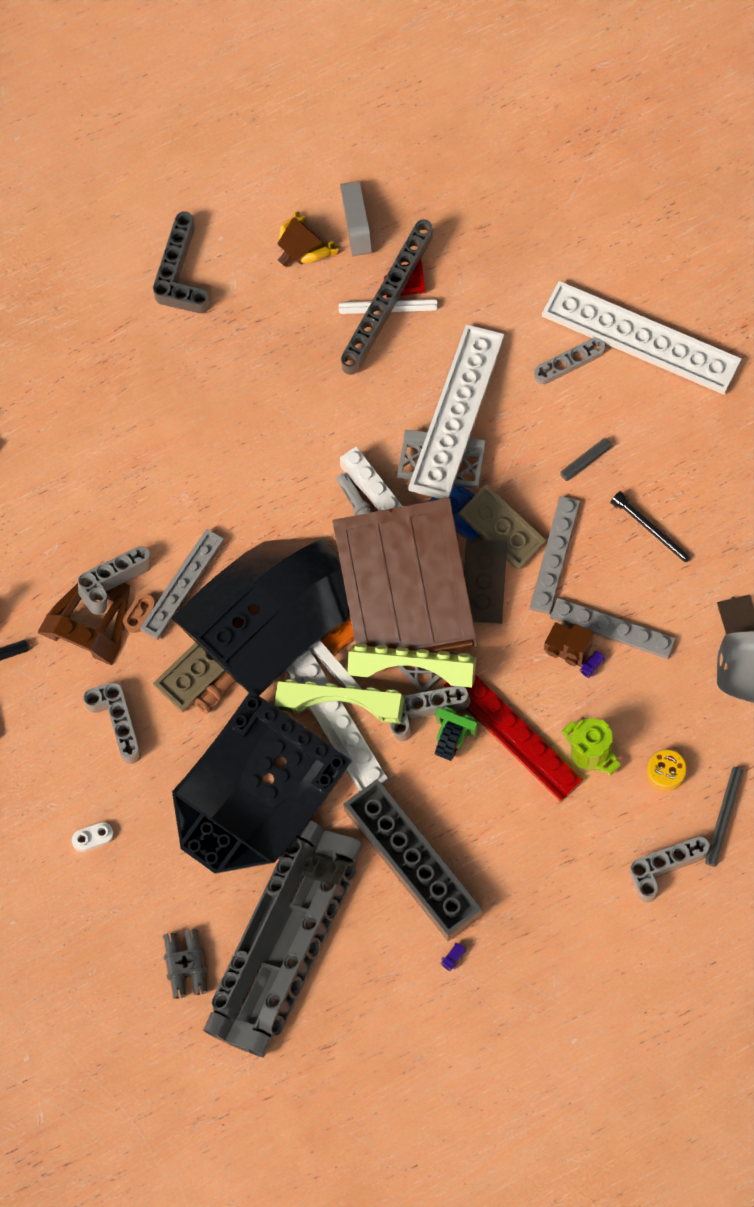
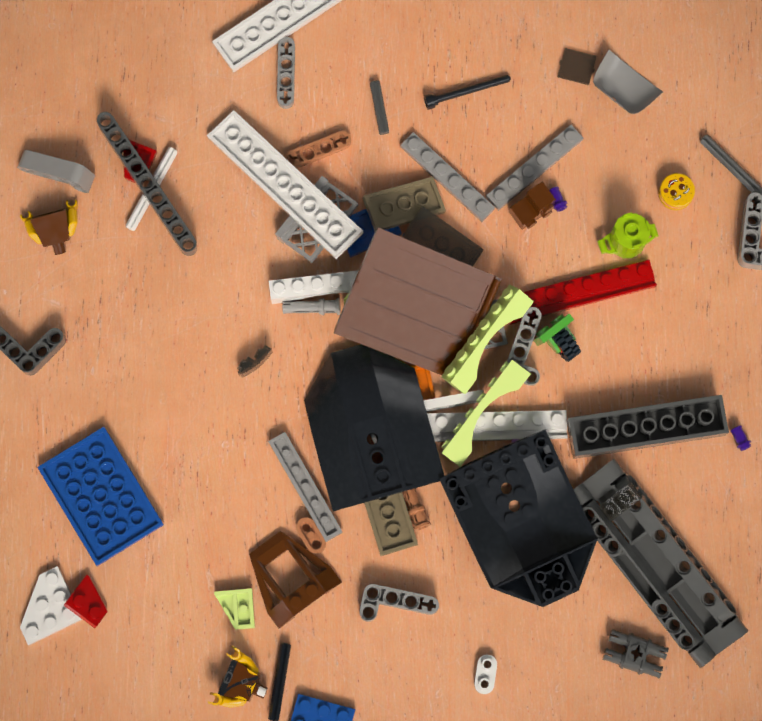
camera: 65 degrees left, 10 degrees up
(38, 586) = (238, 607): none -> yellowish green wing
(76, 415) = (100, 496): none -> blue plate
(135, 563) = (269, 537): light grey beam -> none
(268, 476) = (249, 366): none -> clear smoke slope
(512, 424) = (318, 153): none -> nougat beam

